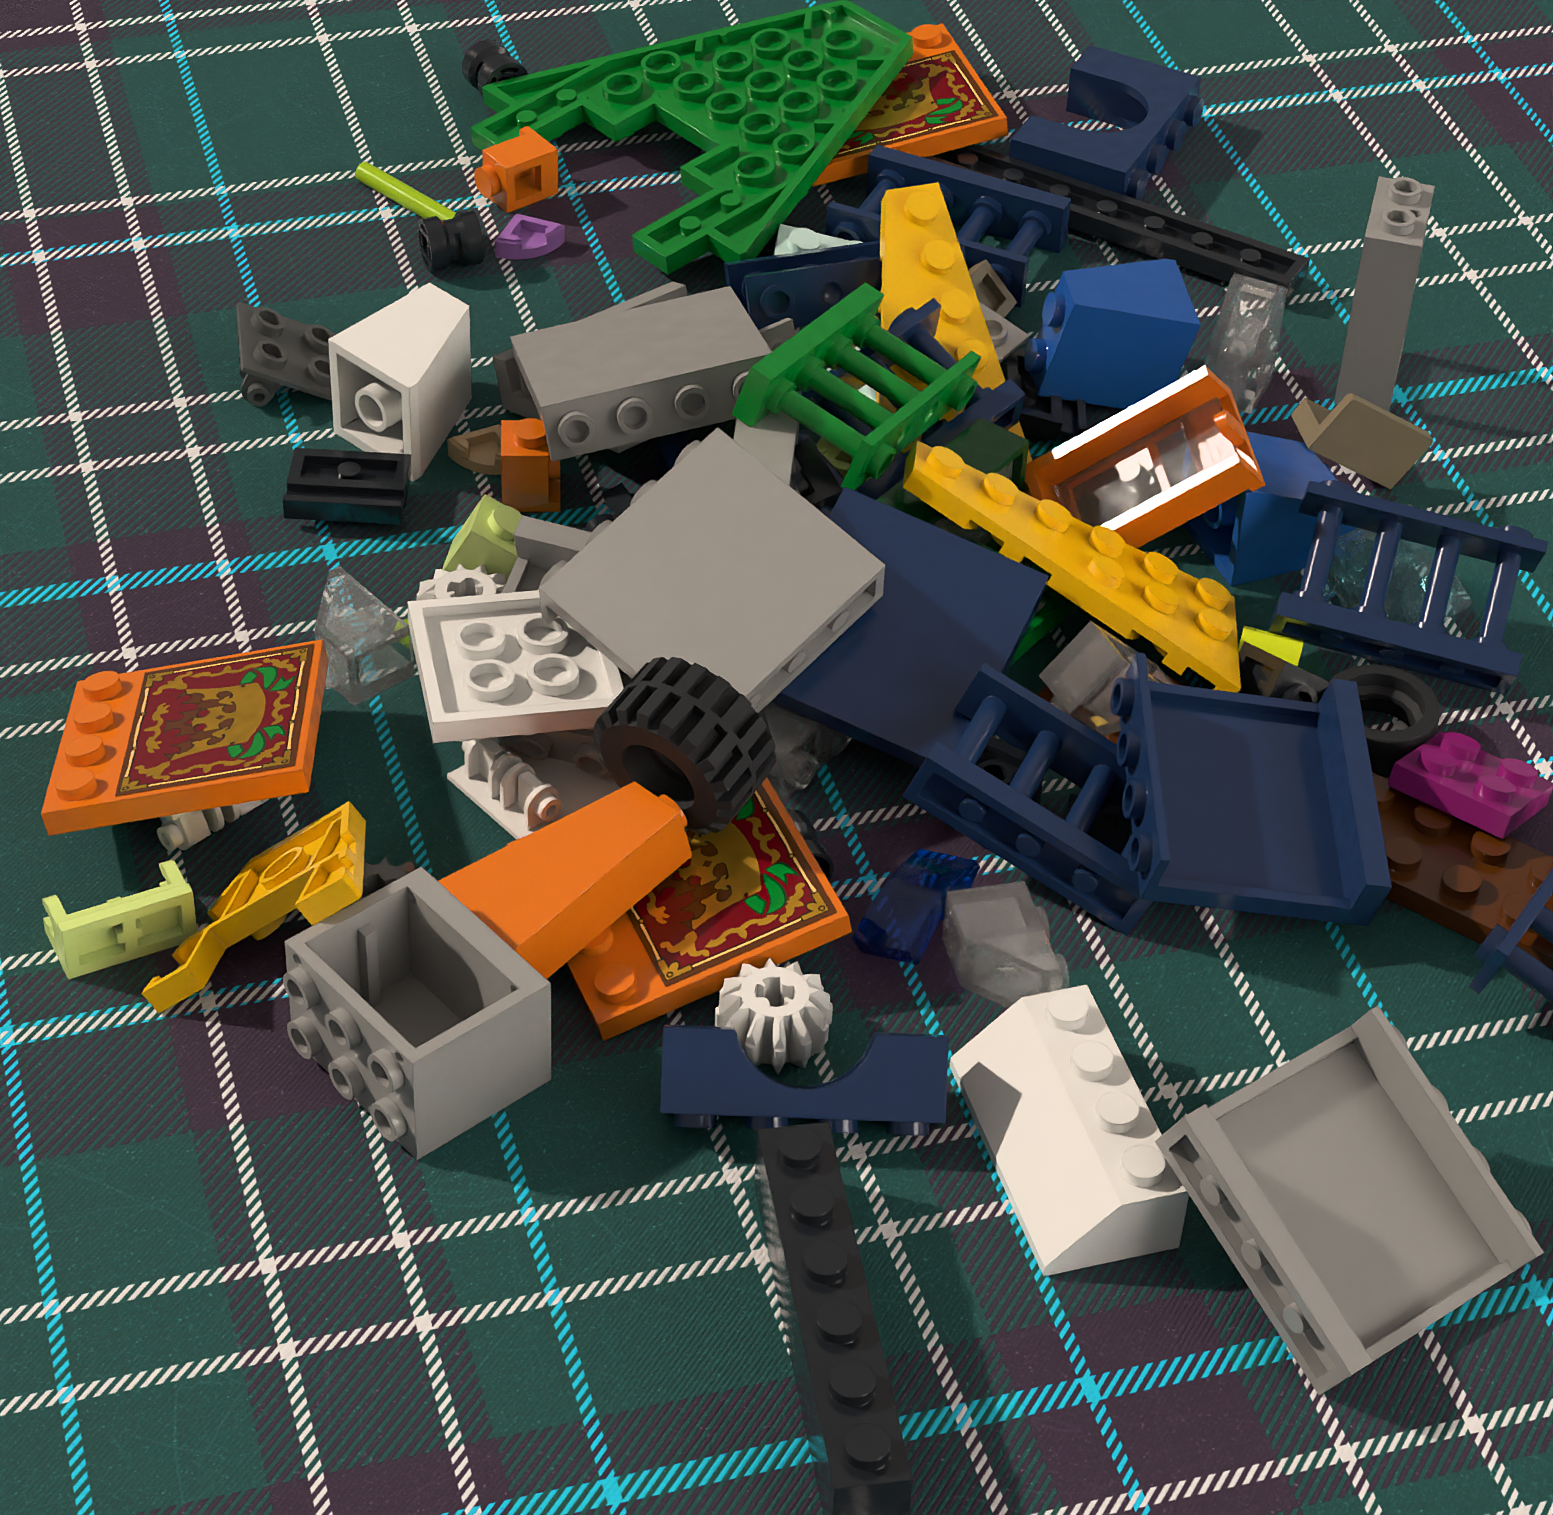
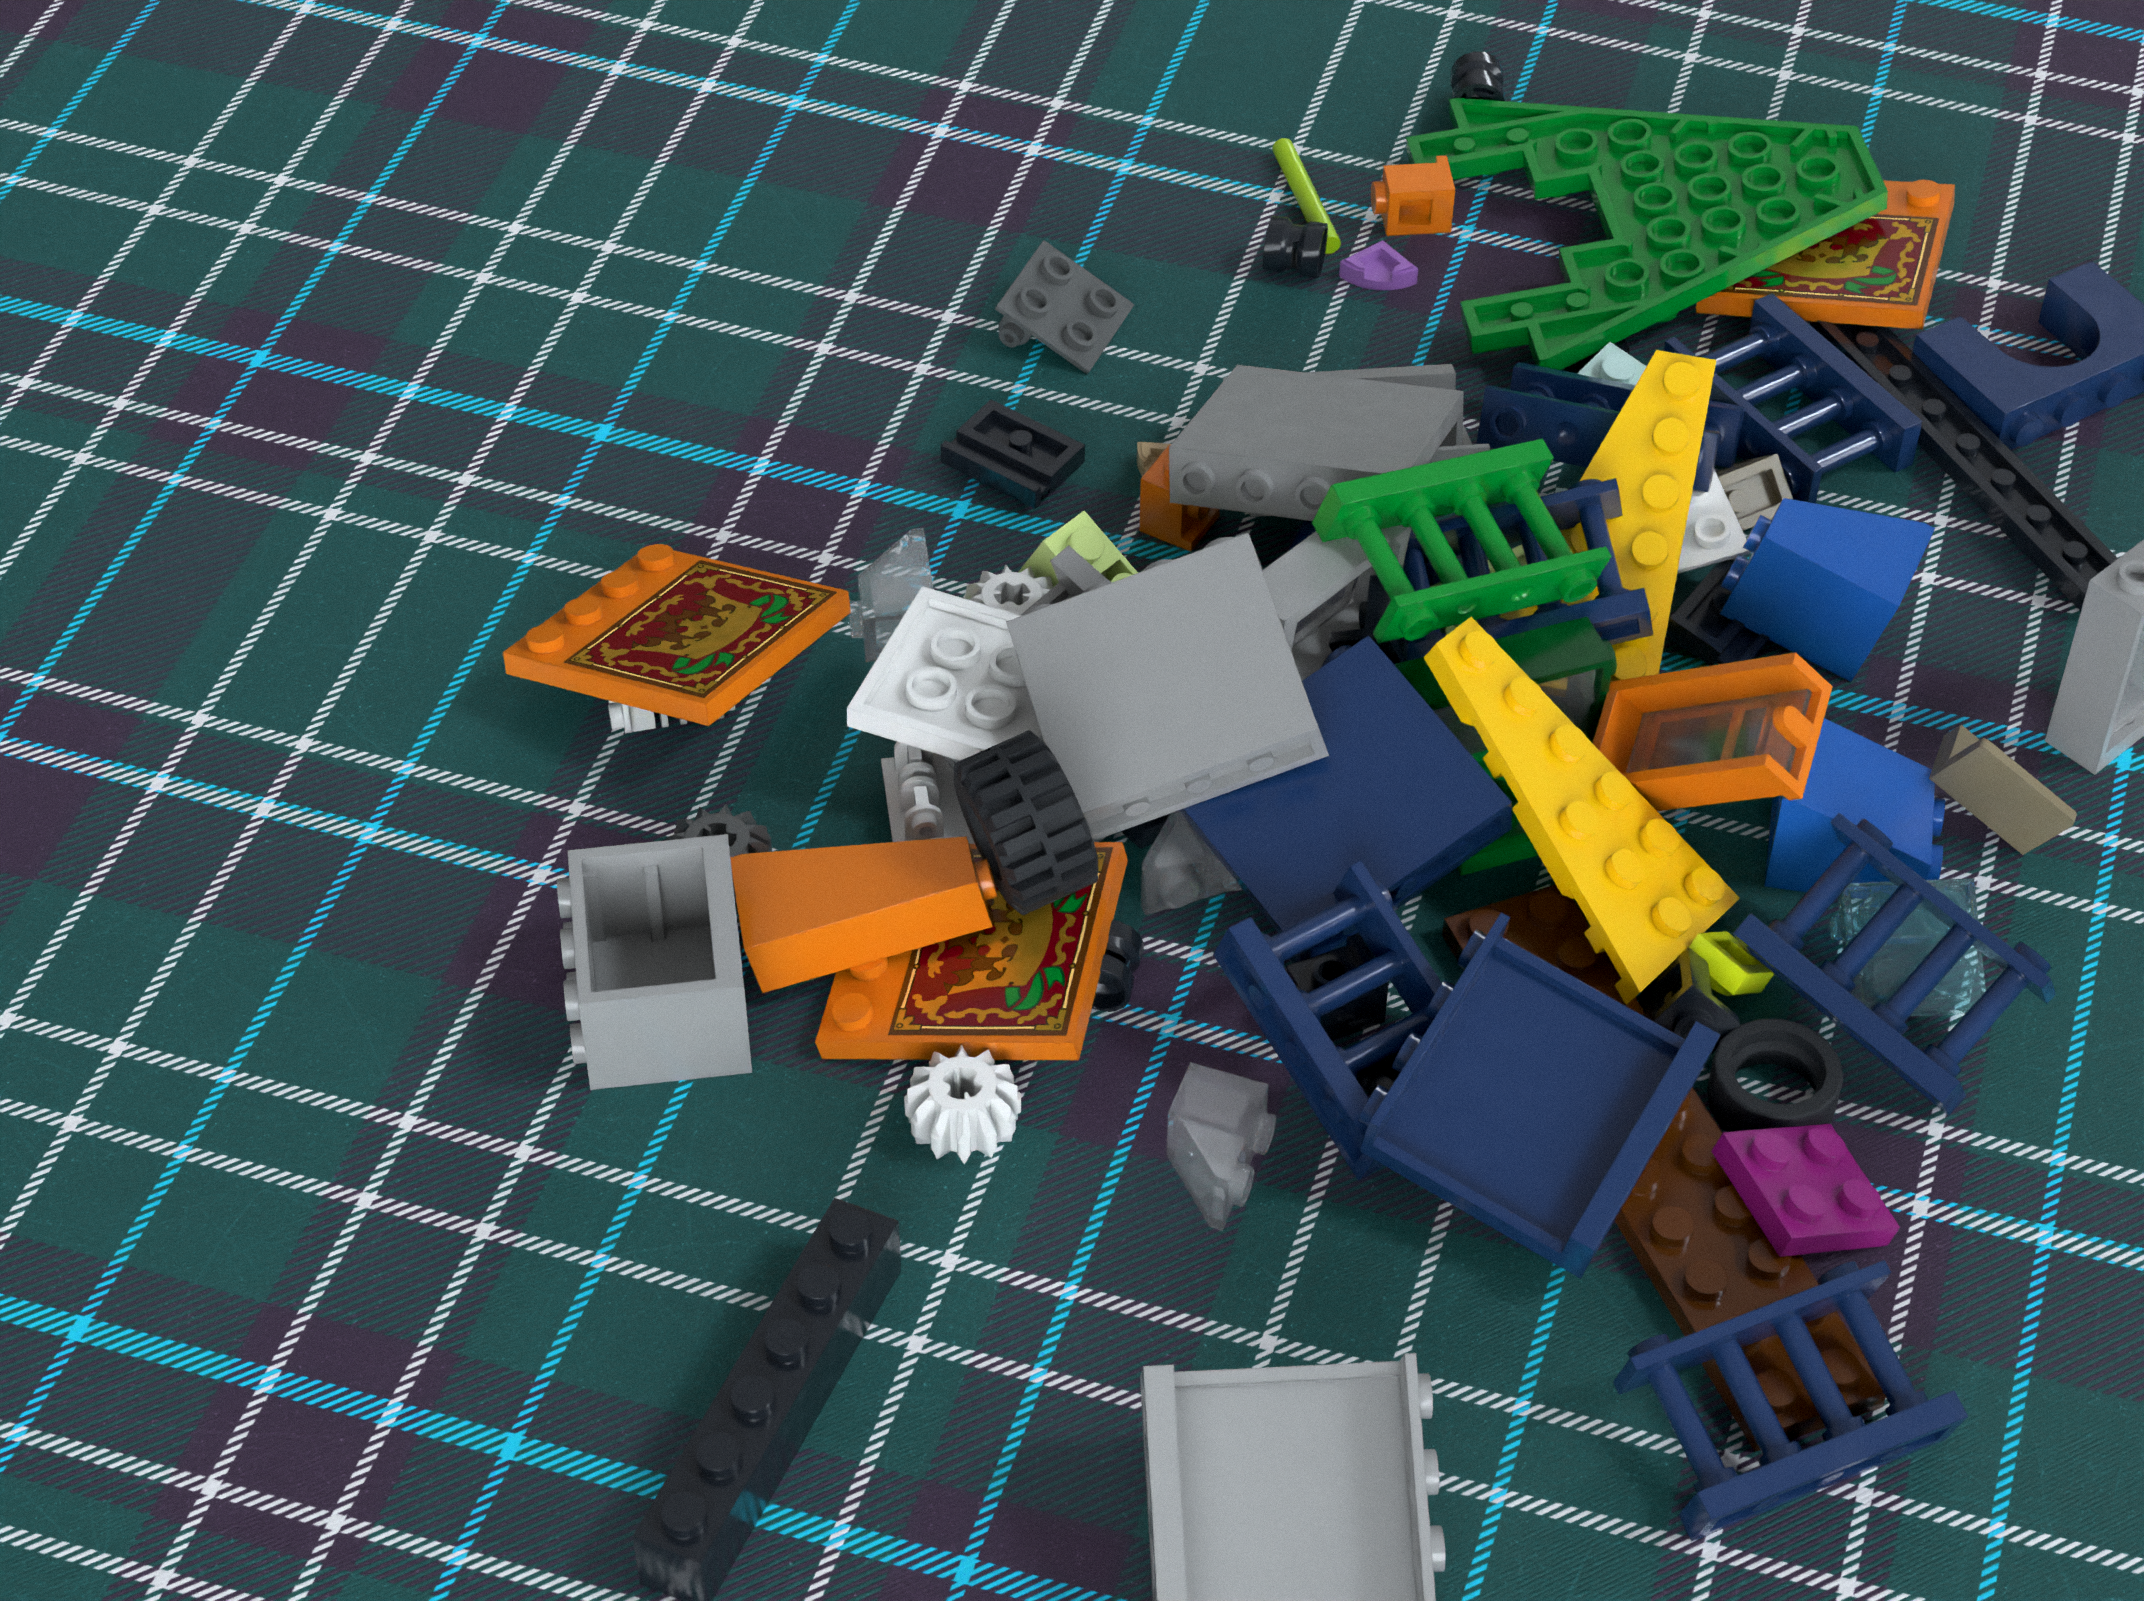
camera: 35 degrees right, 5 degrees up
(122, 926) = (515, 779): yellowish green hinge -> none
(310, 871) = (628, 808): yellow wing -> none
(403, 376) = (1130, 368): white slope -> none
(894, 1081) = (862, 1134): dark blue arch -> none
(912, 904) = (1159, 1060): clear blue slope -> none
(1070, 1134) = (1130, 1304): white slope -> none
(1086, 674) = (1532, 925): clear slope -> none
(1247, 338) = (1966, 644): clear slope -> none

